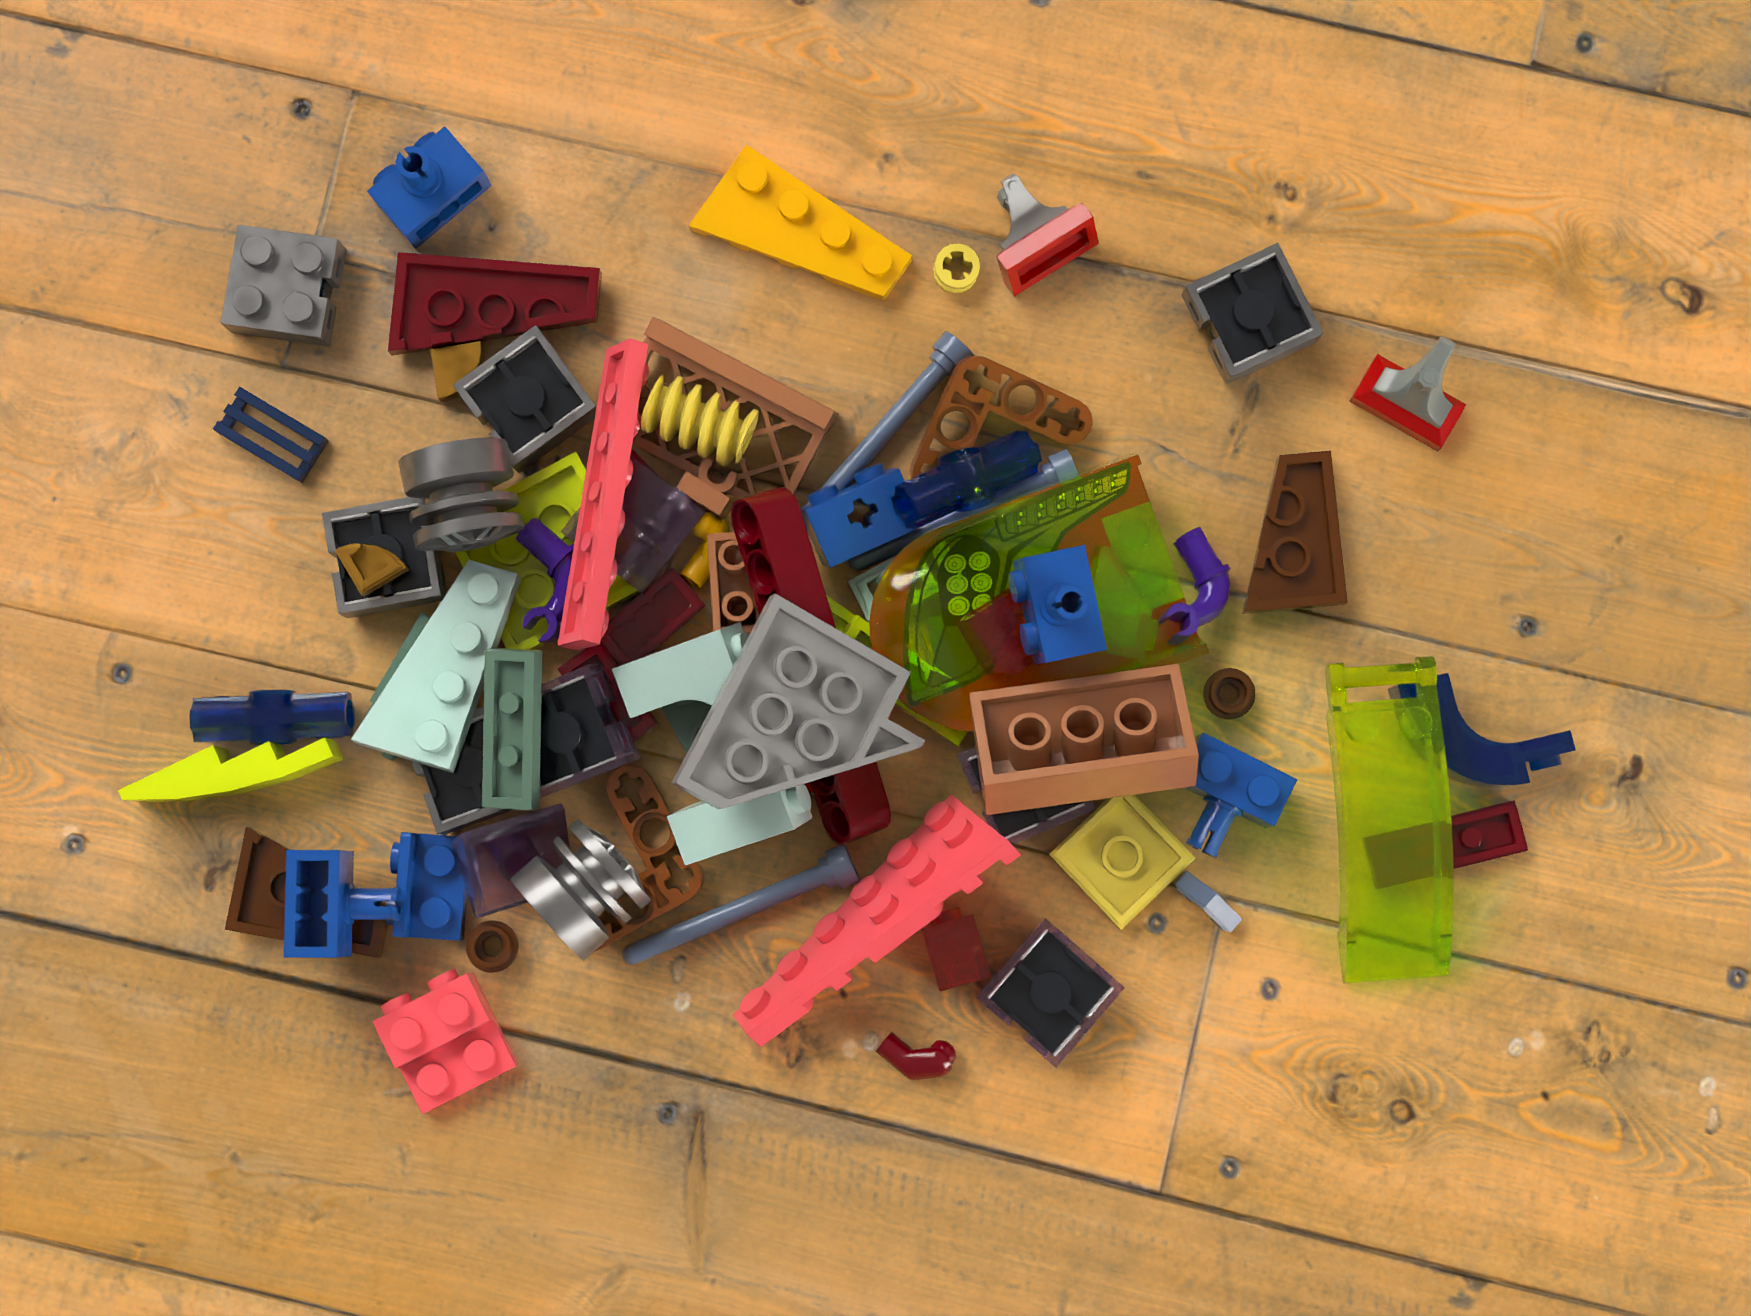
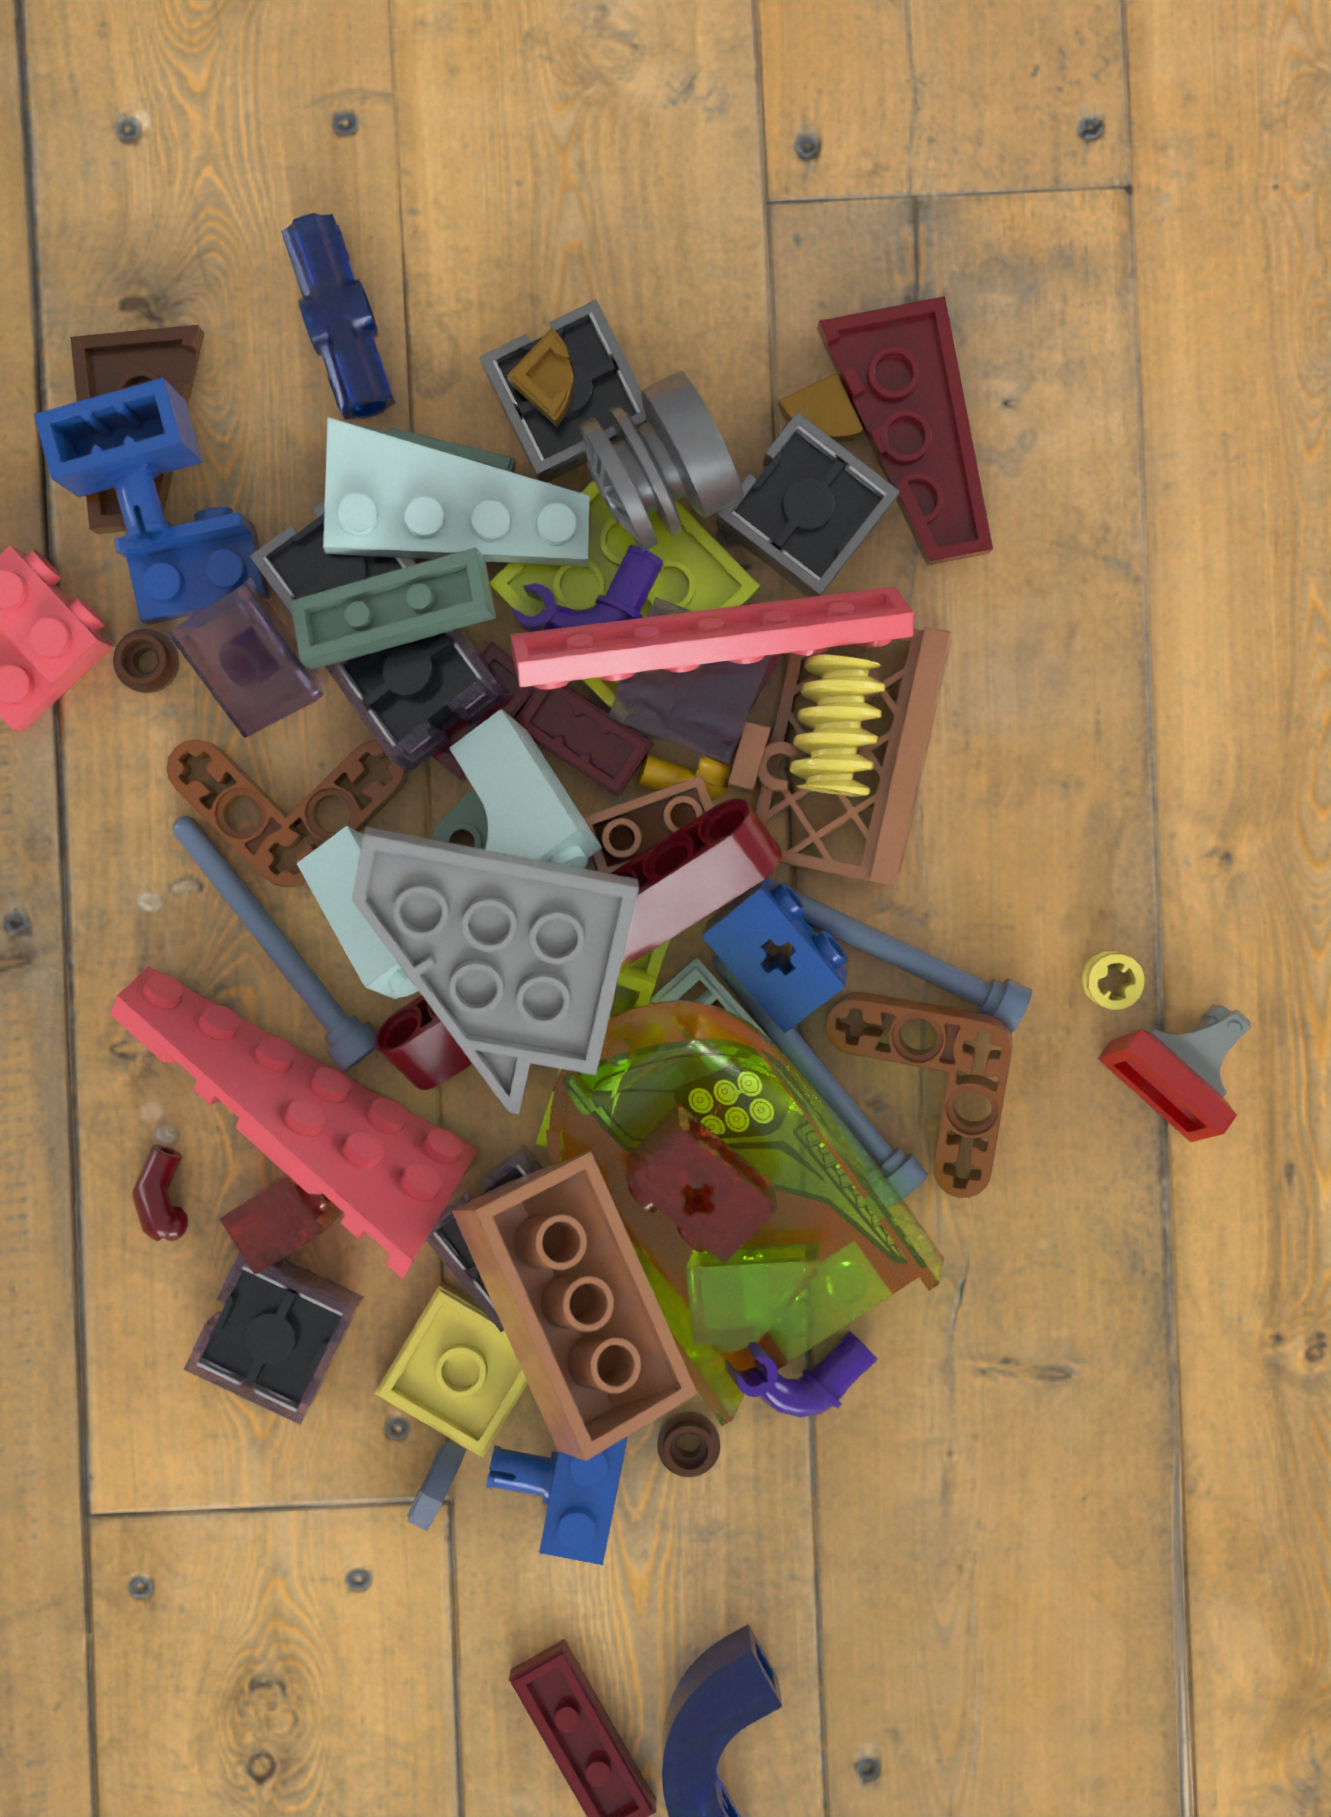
camera: 65 degrees right, 5 degrees up
(215, 774) = (252, 275): neon yellow slope -> none
(235, 413) = (692, 160): dark blue tile -> none
(283, 285) = (865, 168): flat silver piece -> none
(428, 186) = (1037, 308): blue brick -> none
(581, 889) = (214, 742): flat silver wheel -> none
(783, 218) = (1116, 754): yellow wing -> none
(966, 479) = (854, 1069): clear blue piece -> none
(1057, 605) = (725, 1234): blue brick -> none
(1252, 313) = (1156, 1354): piece -> none
(1299, 539) = (896, 1479): reddish brown wing -> none
(1391, 825) = (587, 1689): clear neon green windscreen -> none
(1412, 396) = (1102, 1571): piece -> none

